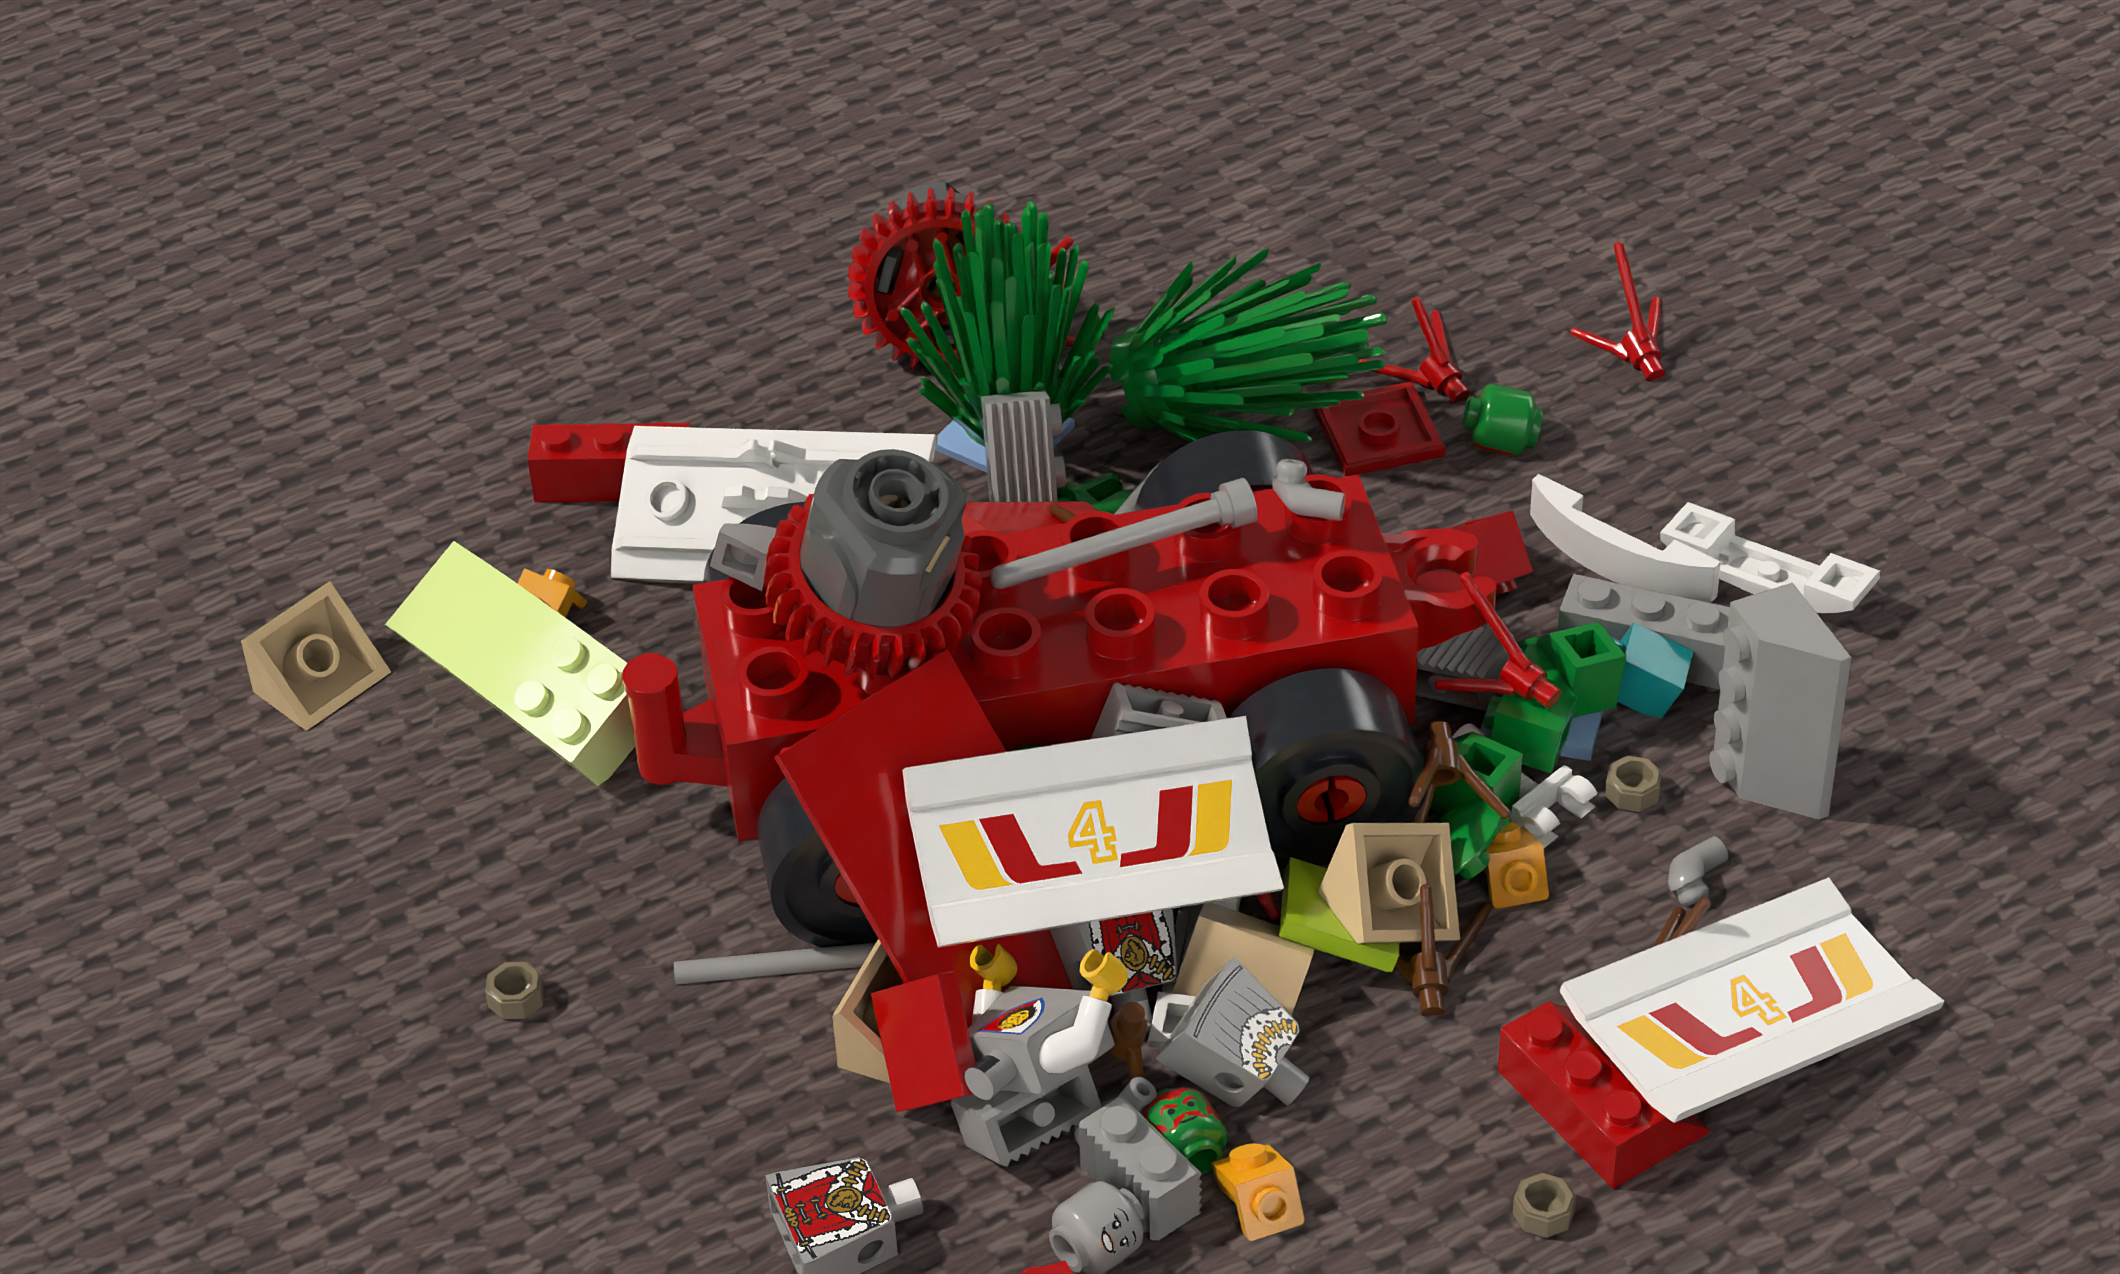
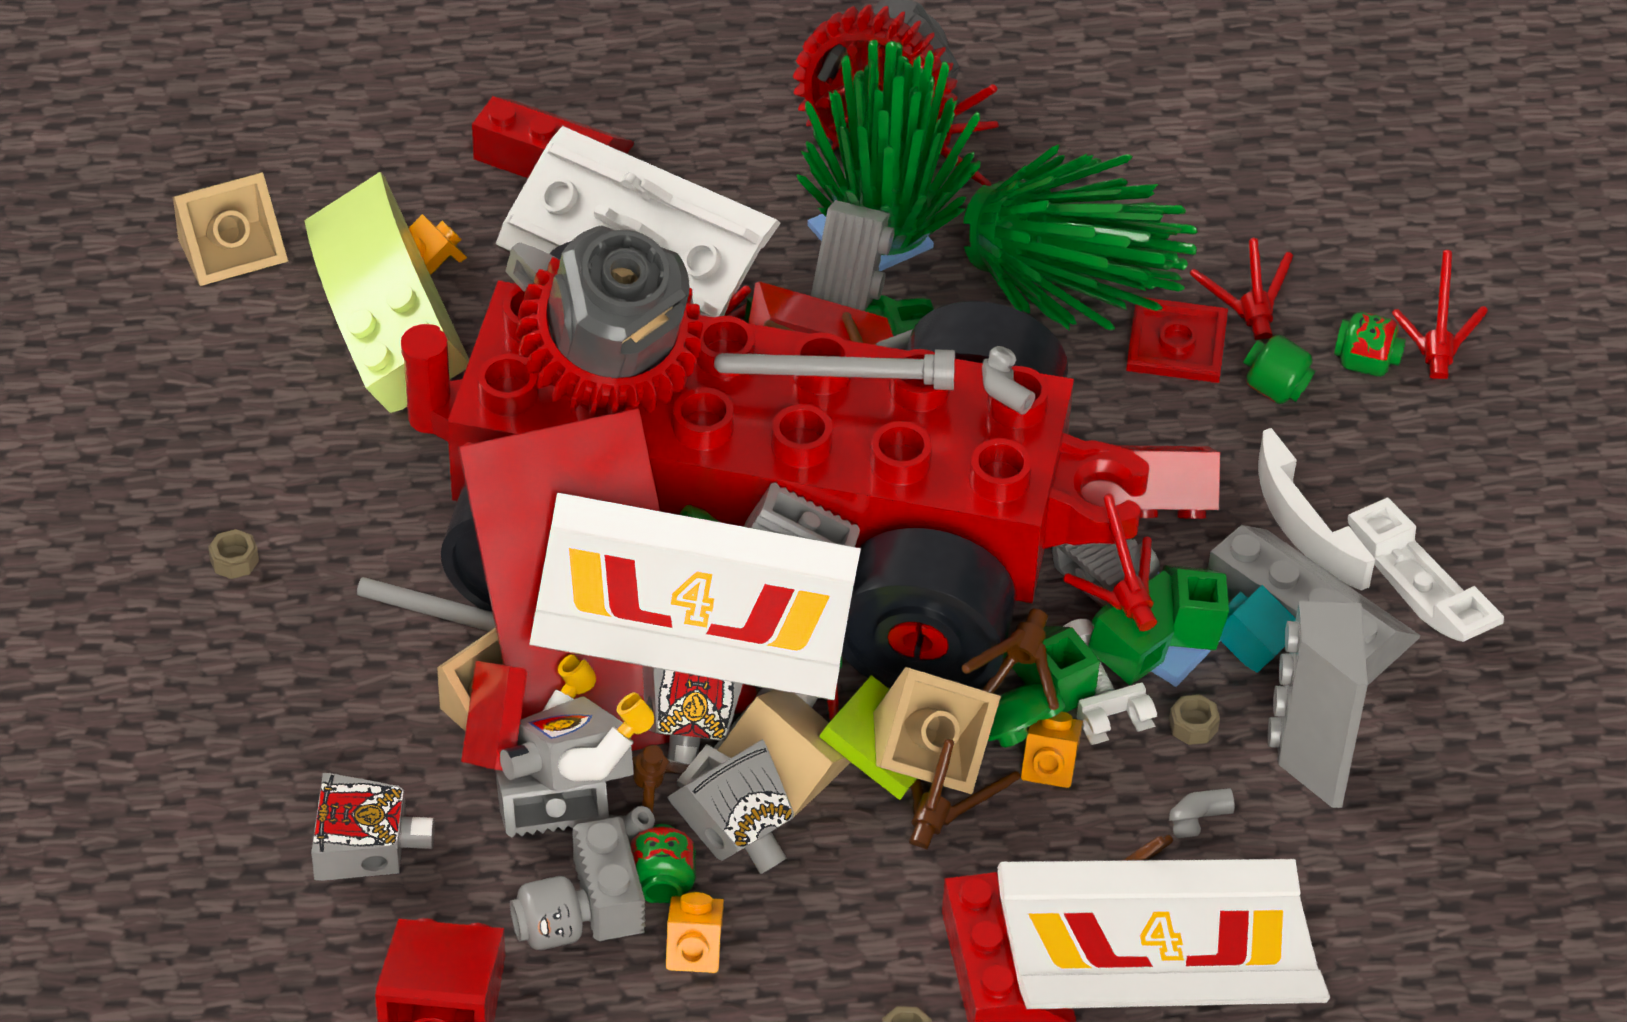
camera: 20 degrees right, 5 degrees up
(1573, 366) = (1369, 344): none -> green head

